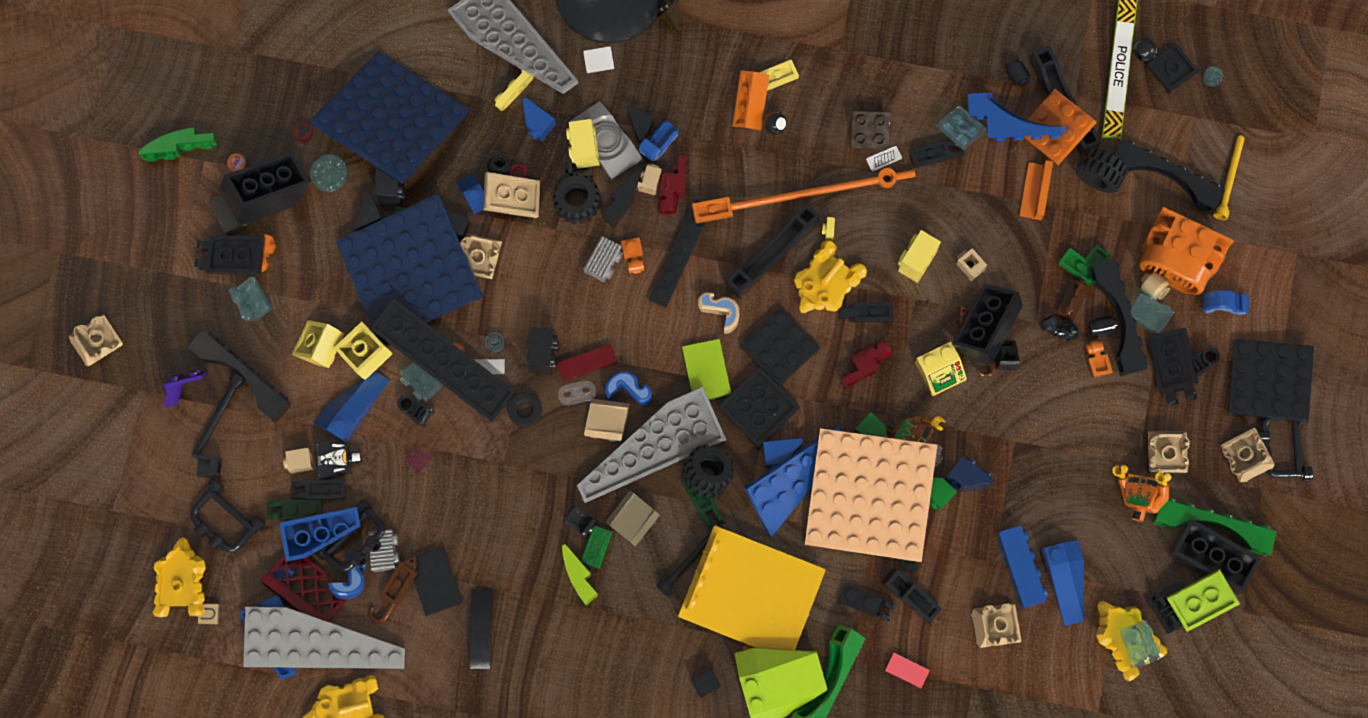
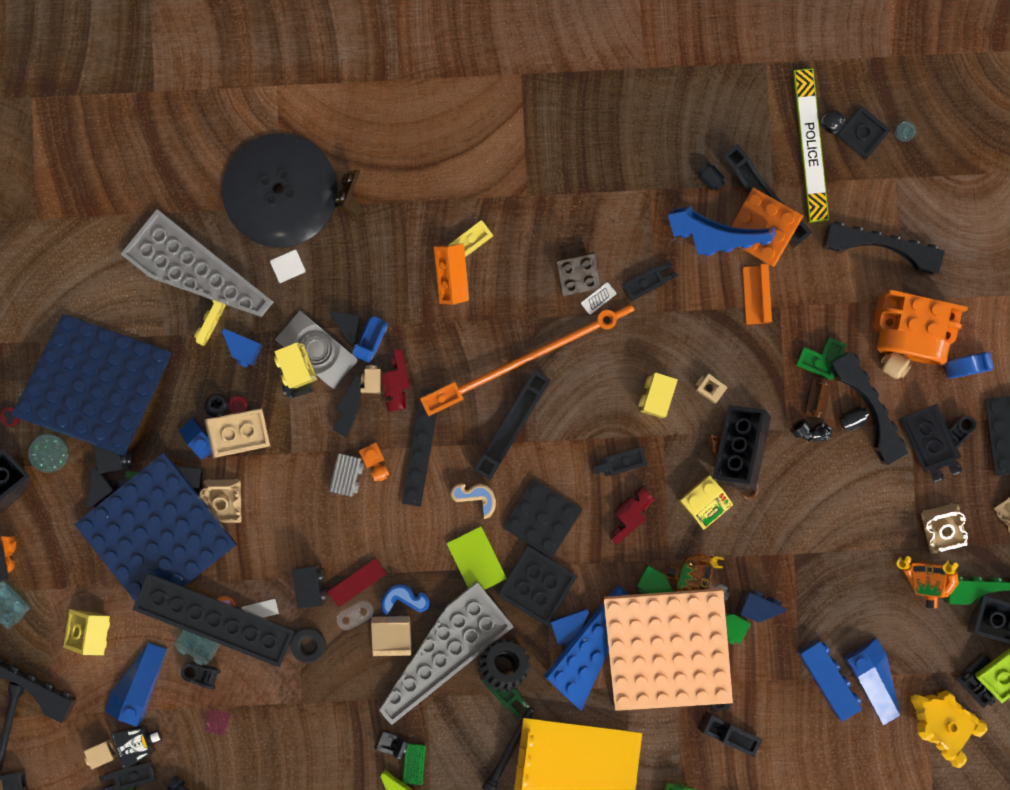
camera: 15 degrees left, 10 degrees up
(363, 350) = (132, 631): light yellow brick -> none
(494, 342) = (261, 585): clear light blue tile -> none
(571, 184) = (286, 419): black tyre -> none
(632, 518) = (442, 727): dark tan slope -> none
(775, 122) = (481, 291): black piece -> none
(826, 280) = (572, 440): yellow shield -> none
(828, 228) = (561, 387): light yellow plate -> none
(865, 602) = (686, 751): black hinge -> none
(961, 127) = (668, 250): clear light blue plate -> none
(996, 625) = (818, 742): tan slope -> none
(1008, 356) = (769, 472): black slope -> none
(1099, 363) = (858, 458): orange plate -> none
(1101, 170) = (819, 261): black tyre -> none
(1140, 643) = (962, 731): clear light blue bracket -> none
(1151, 313) = (898, 395): clear light blue bracket -> none
(1221, 211) = (945, 271): yellow piece -> none

